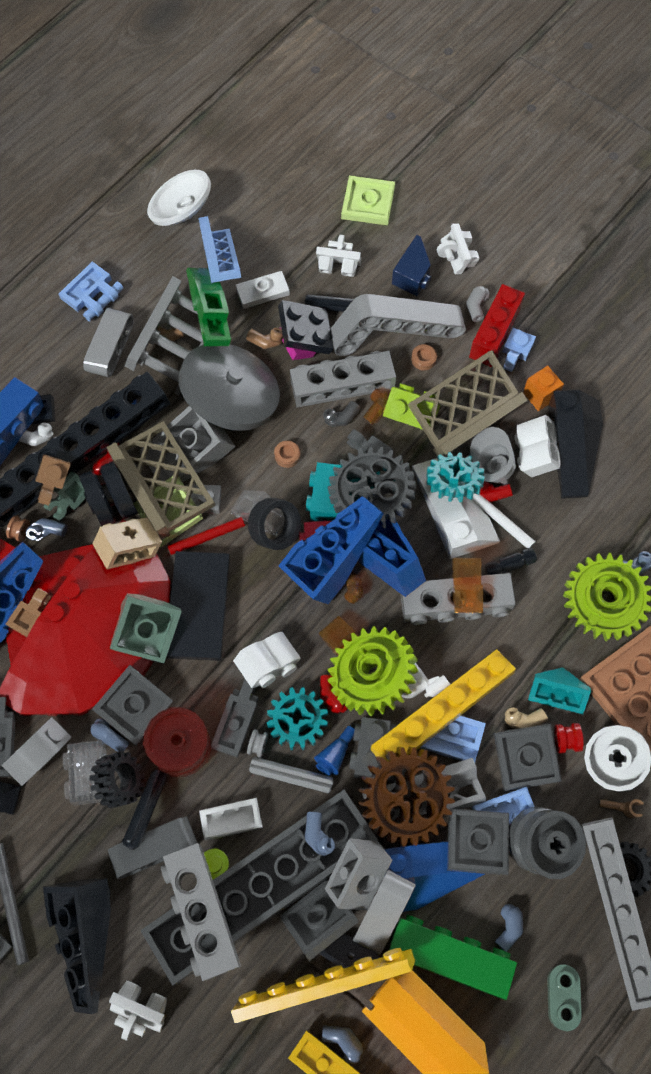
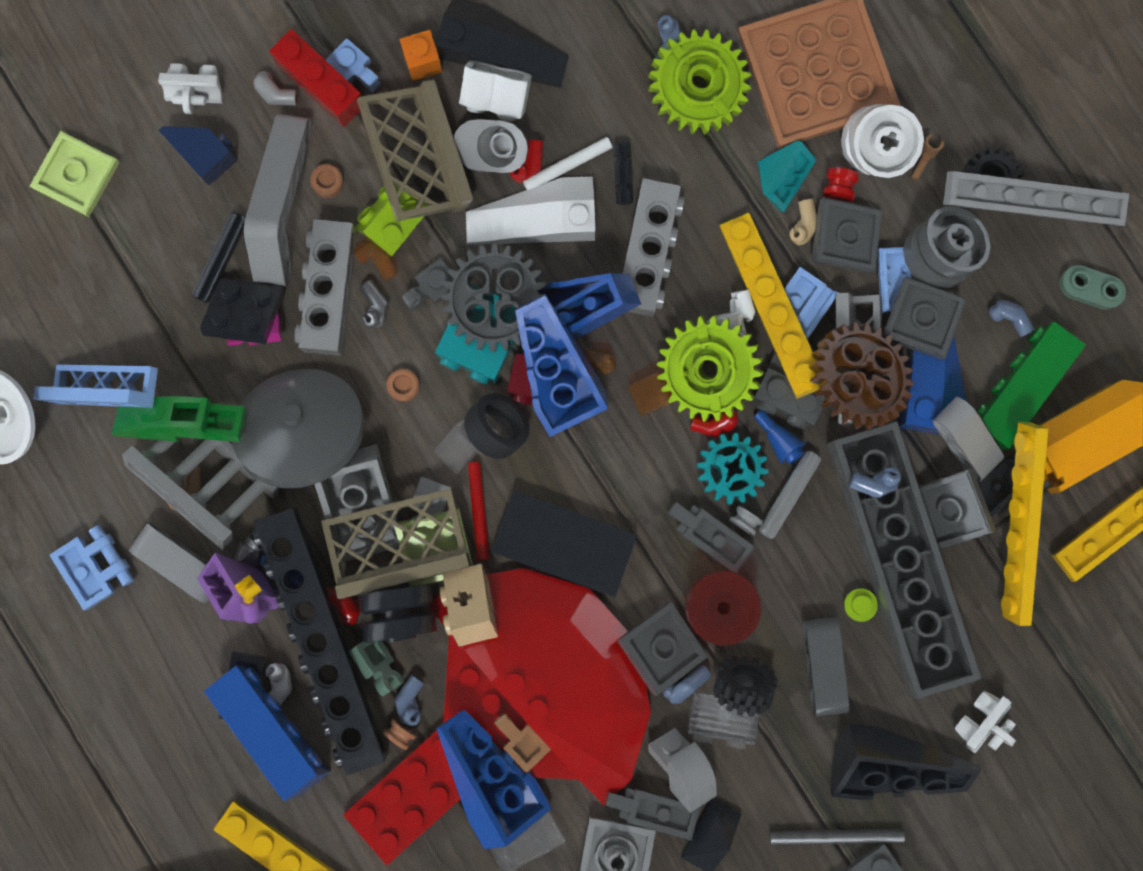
camera: 75 degrees left, 15 degrees up
(52, 474) = (353, 676): medium nougat plate -> none
(97, 379) = (237, 586): none -> medium lavender torso
(144, 809) = (786, 664): black axle -> none
(145, 627) = (581, 609): sand green slope -> none
(224, 957) = (975, 618): light grey brick -> none
(230, 819) = (819, 573): white plate -> none
(262, 289) = (164, 346): white plate -> none
(266, 341) = (240, 364): medium nougat arm -> none
(266, 660) = (658, 482): white brick -> none
(328, 256) = (147, 252): white hips -> none
(347, 1041) = (1071, 518): sand blue arm -> none
(358, 874) = (927, 453): light grey brick -> none
(455, 477) = (507, 211): teal gear -> none
(467, 585) = (645, 230): clear orange slope -> none

